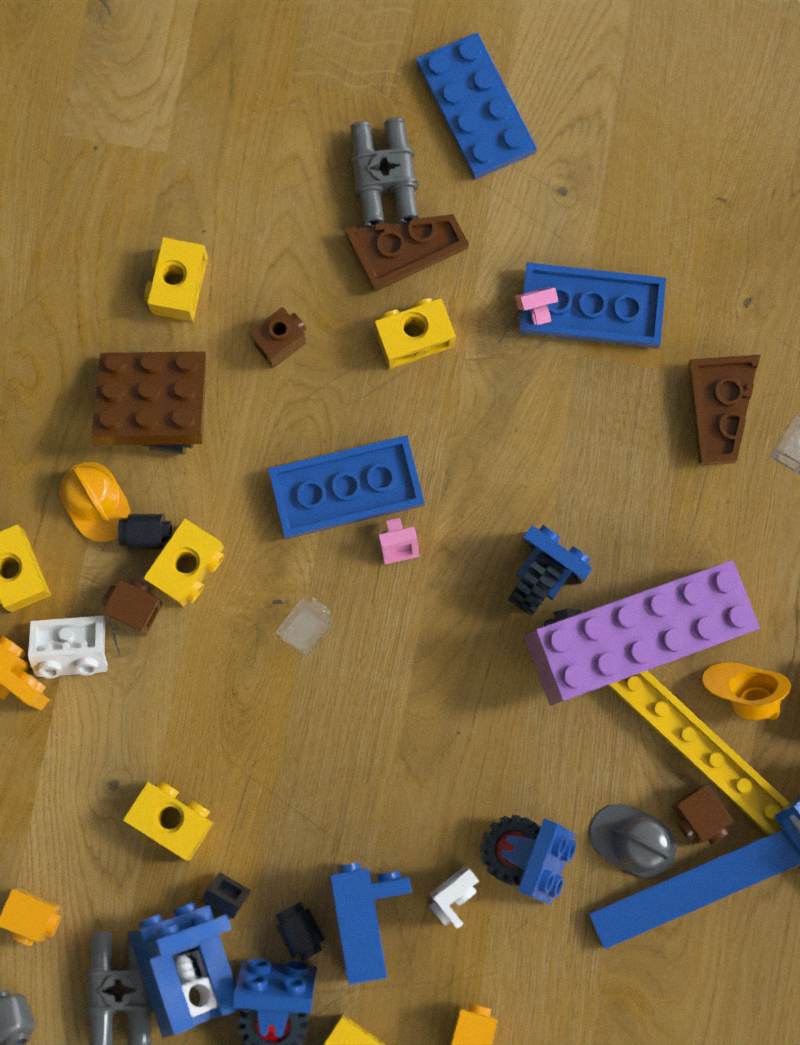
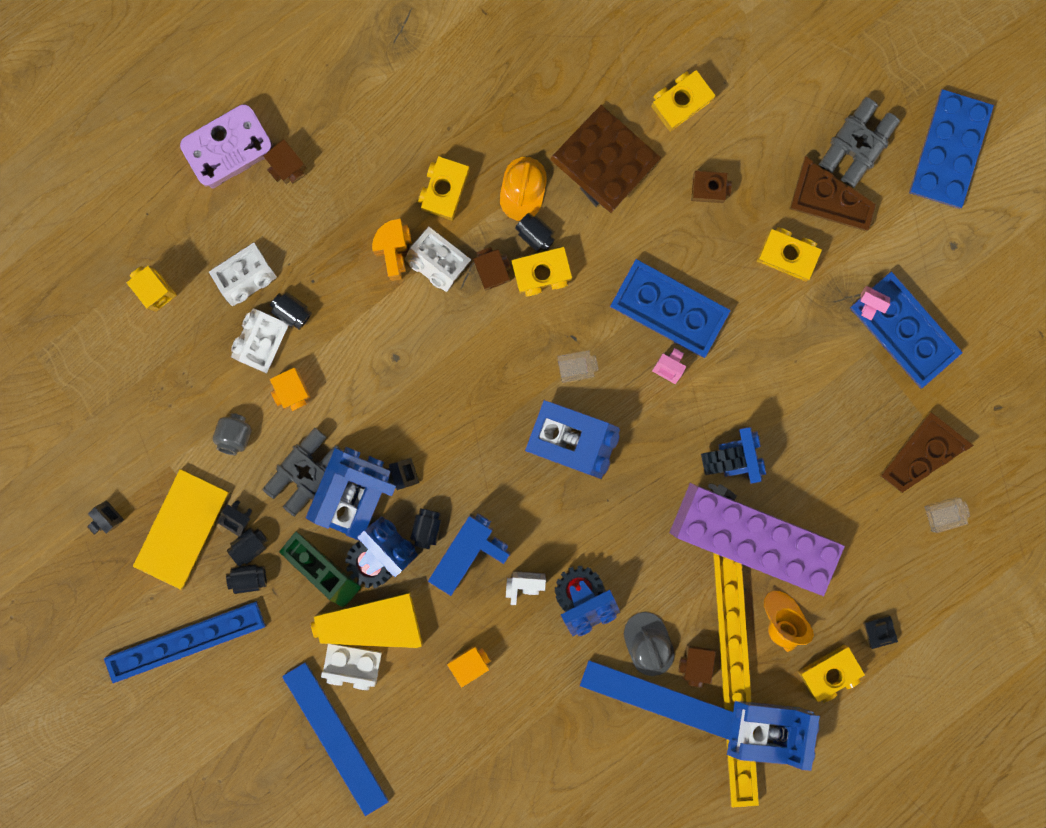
camera: 40 degrees right, 10 degrees up
(147, 818) = (409, 422): yellow brick -> none
(393, 690) = (592, 447): none -> blue brick

